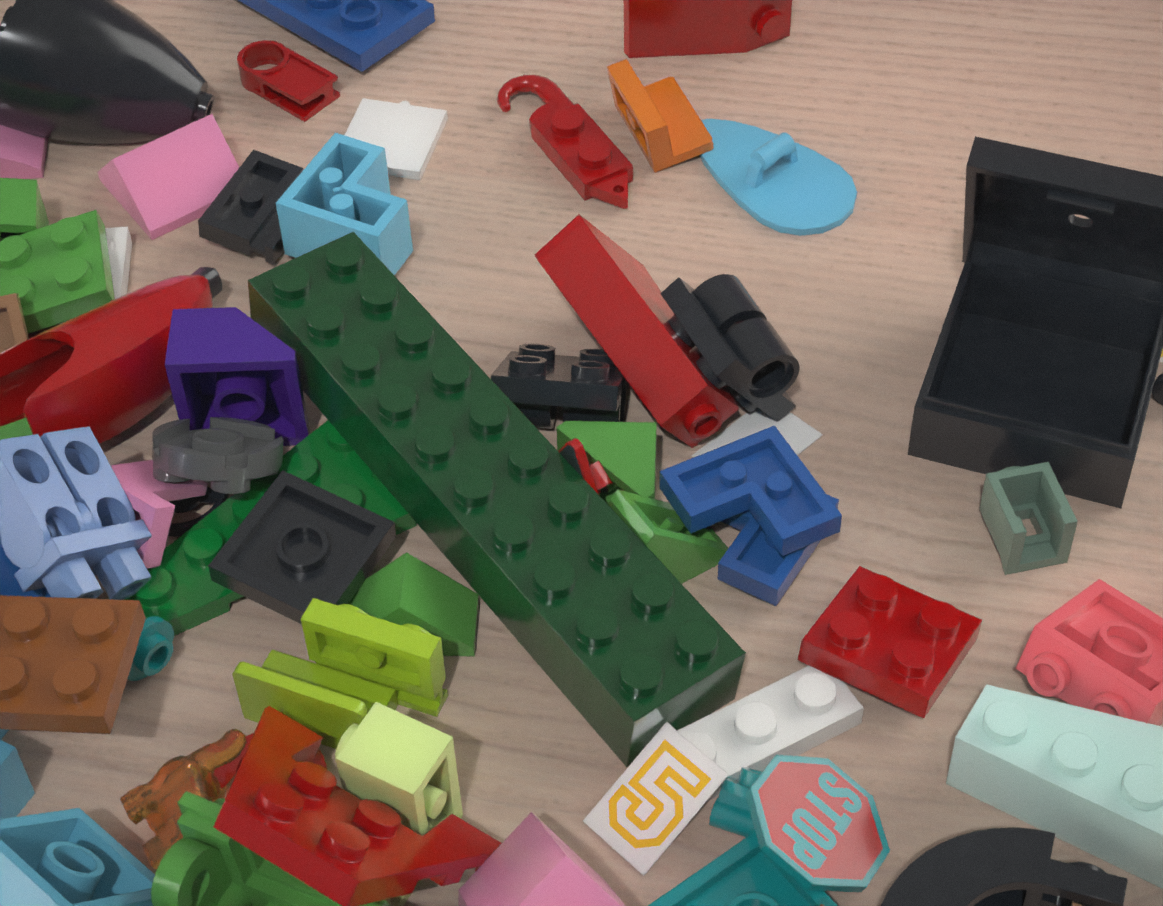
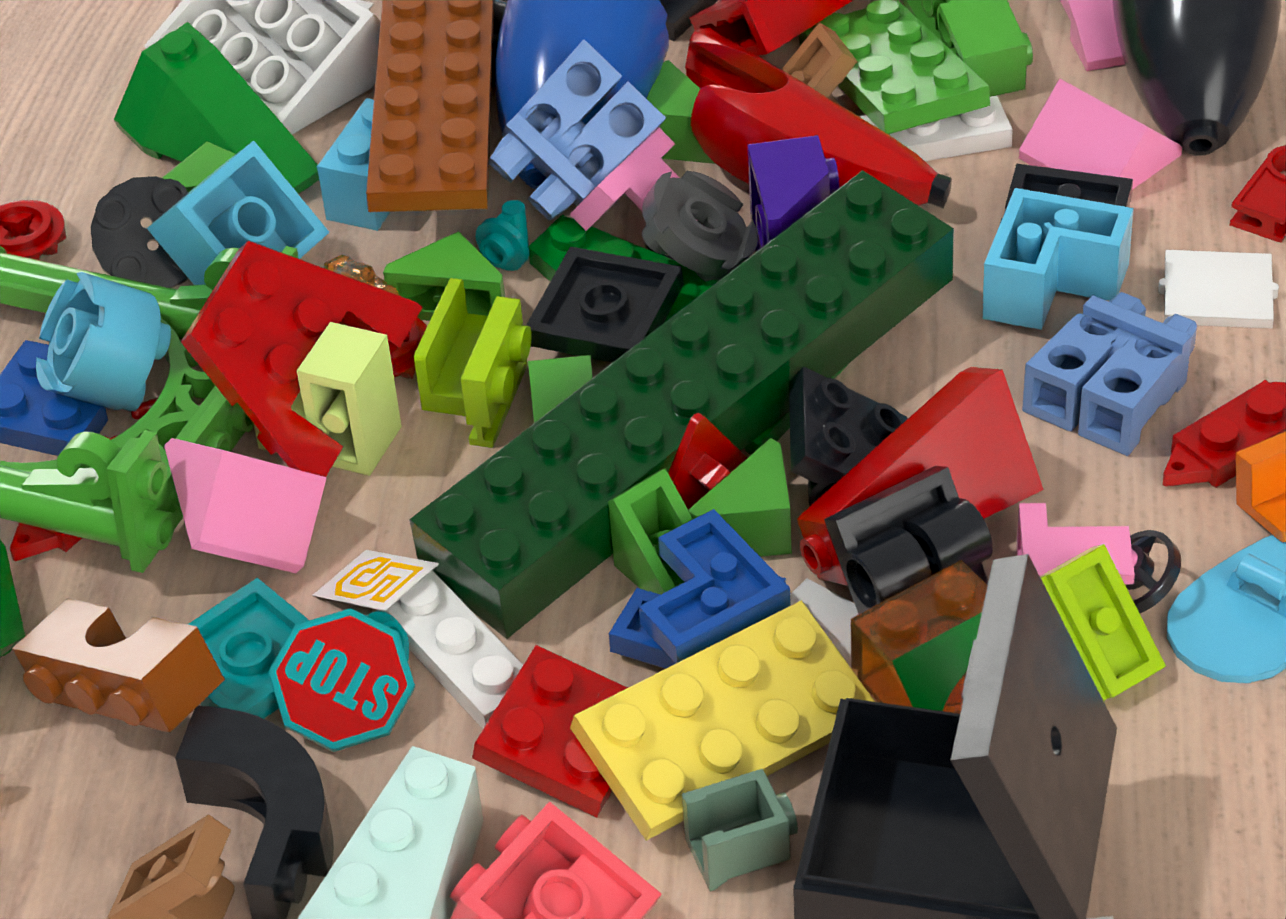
camera: 85 degrees right, 5 degrees down
(197, 691) = (426, 273): none -> bright green slope
(497, 203) = (1109, 371): none -> medium blue hips
(748, 250) = (1130, 553): none -> bright pink piece
(829, 249) = (1103, 621): none -> lime plate
(842, 361) = (920, 641): none -> clear orange slope
(906, 515) = (719, 715): none -> light yellow plate

